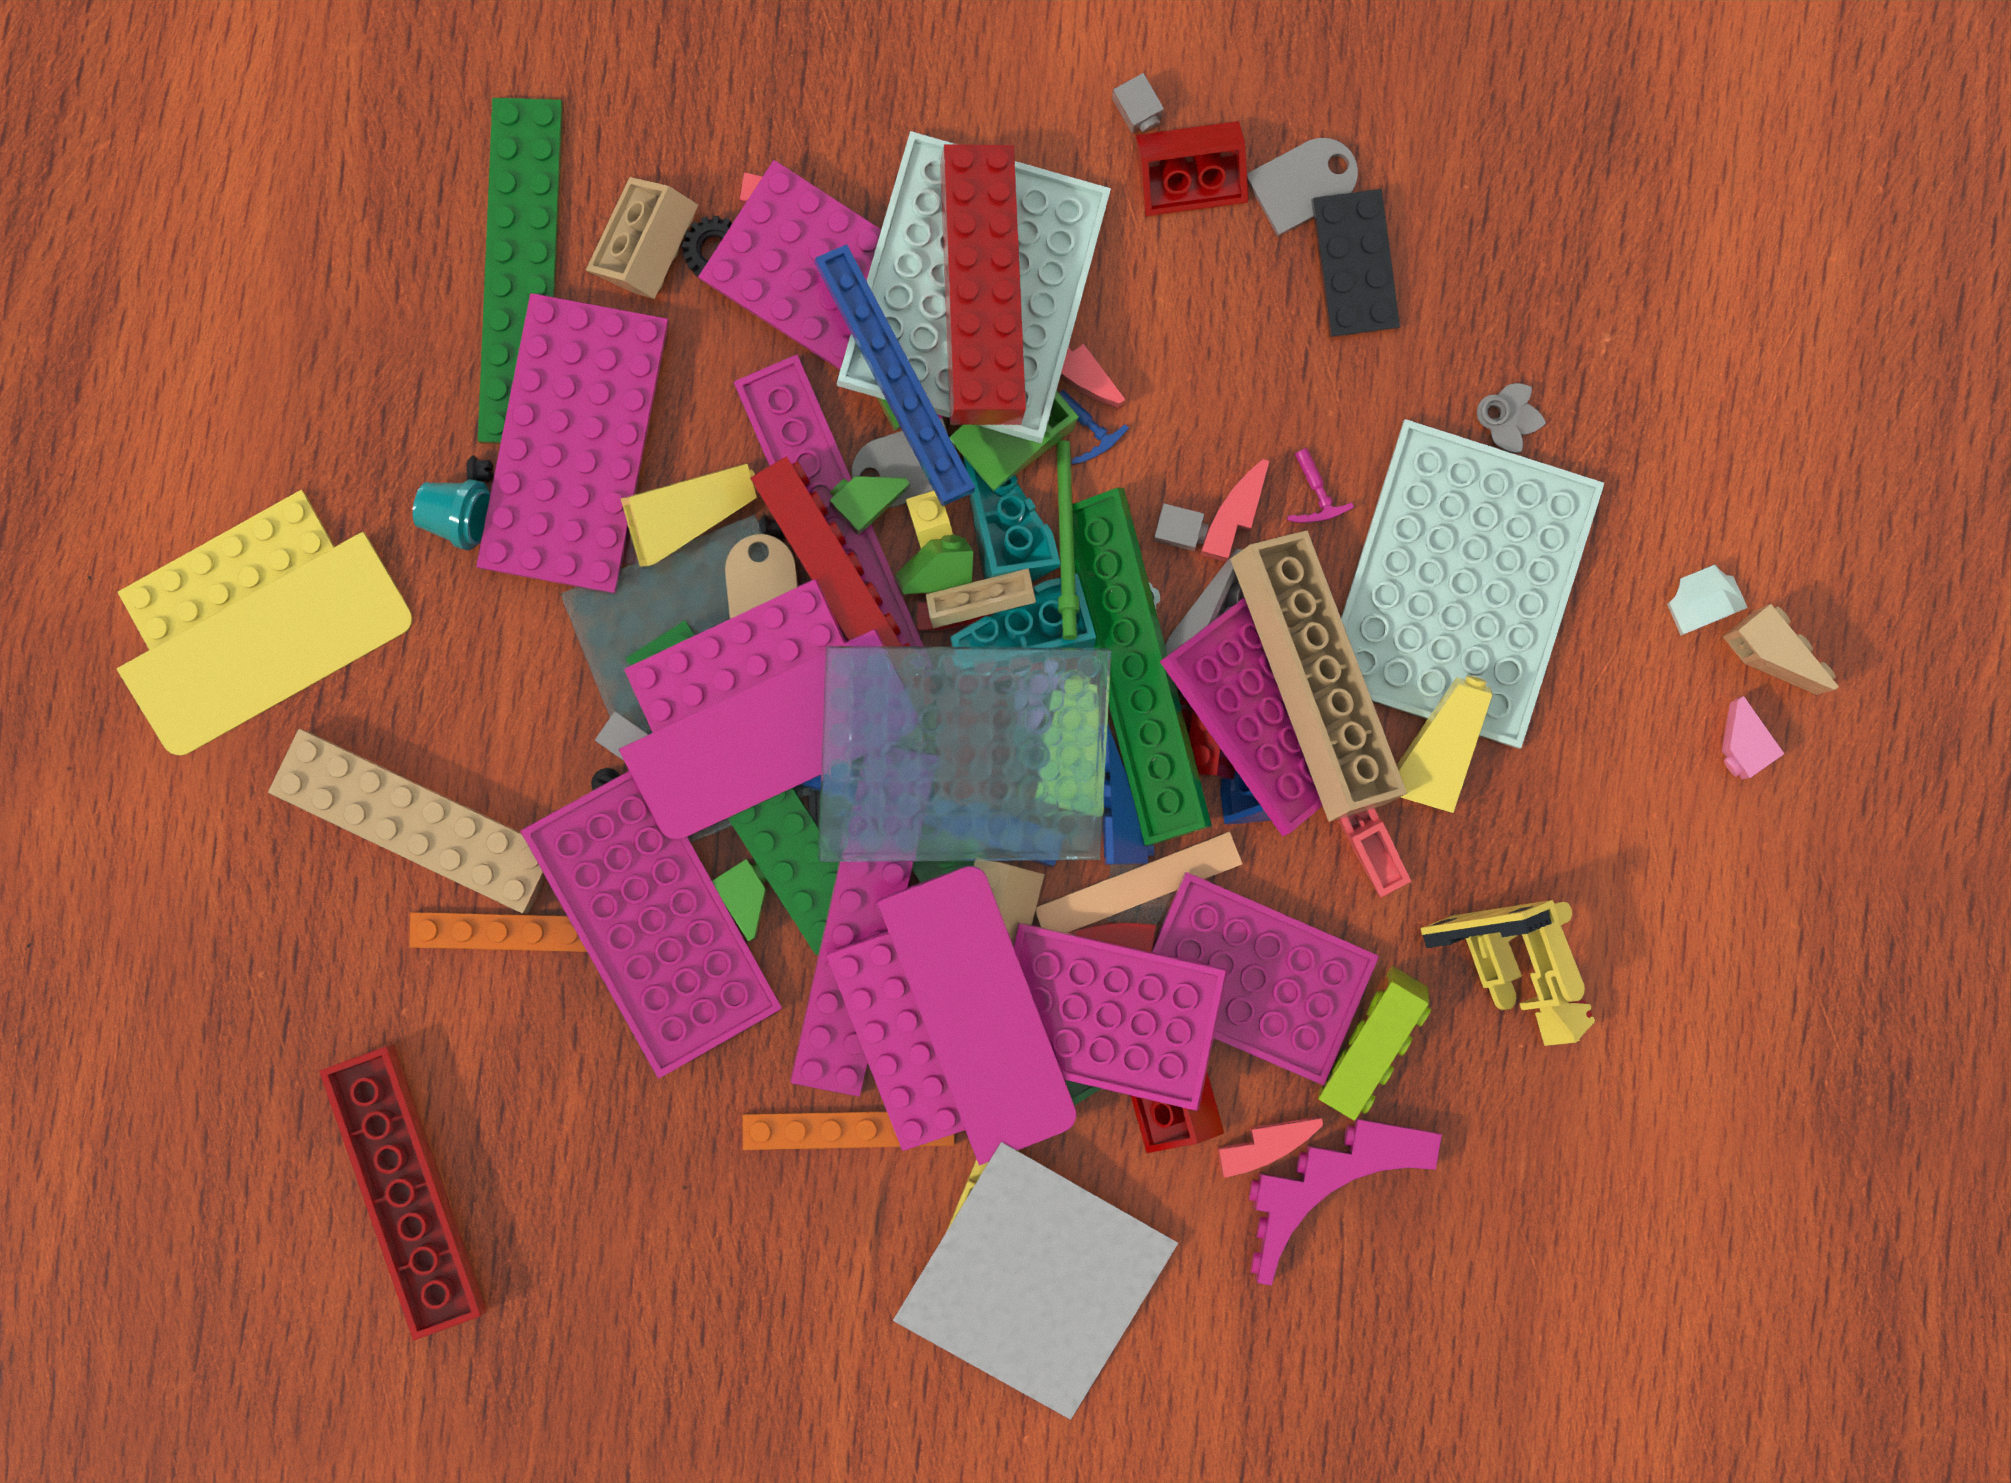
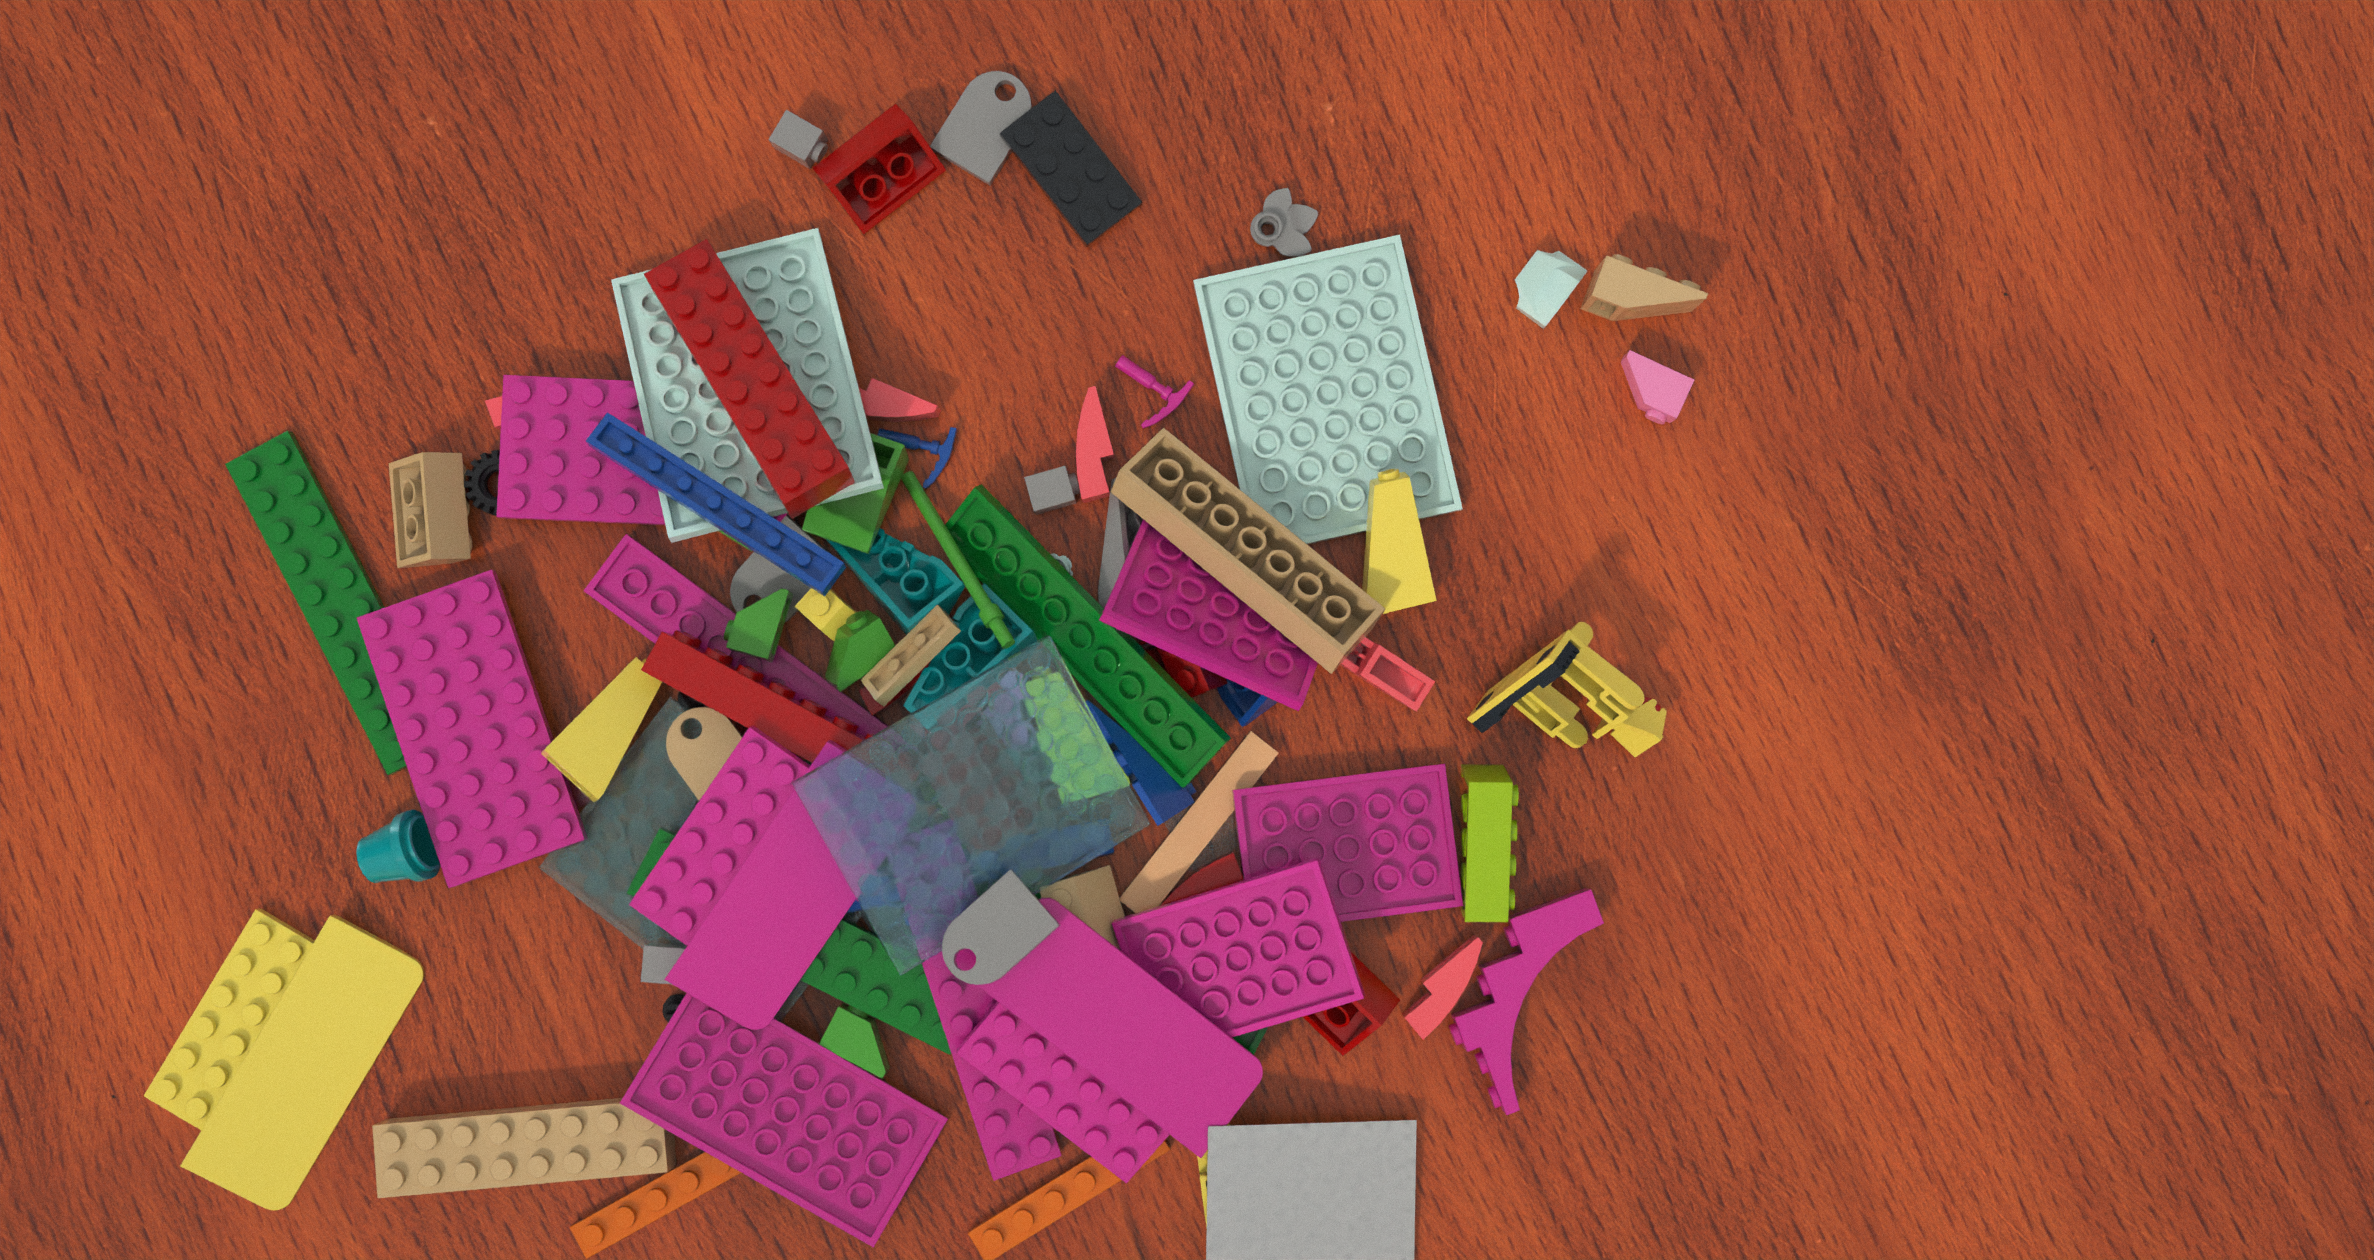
camera: 25 degrees left, 0 degrees up
(478, 469) = (403, 799): black piece -> none
(926, 872) = (999, 929): none -> light grey tile

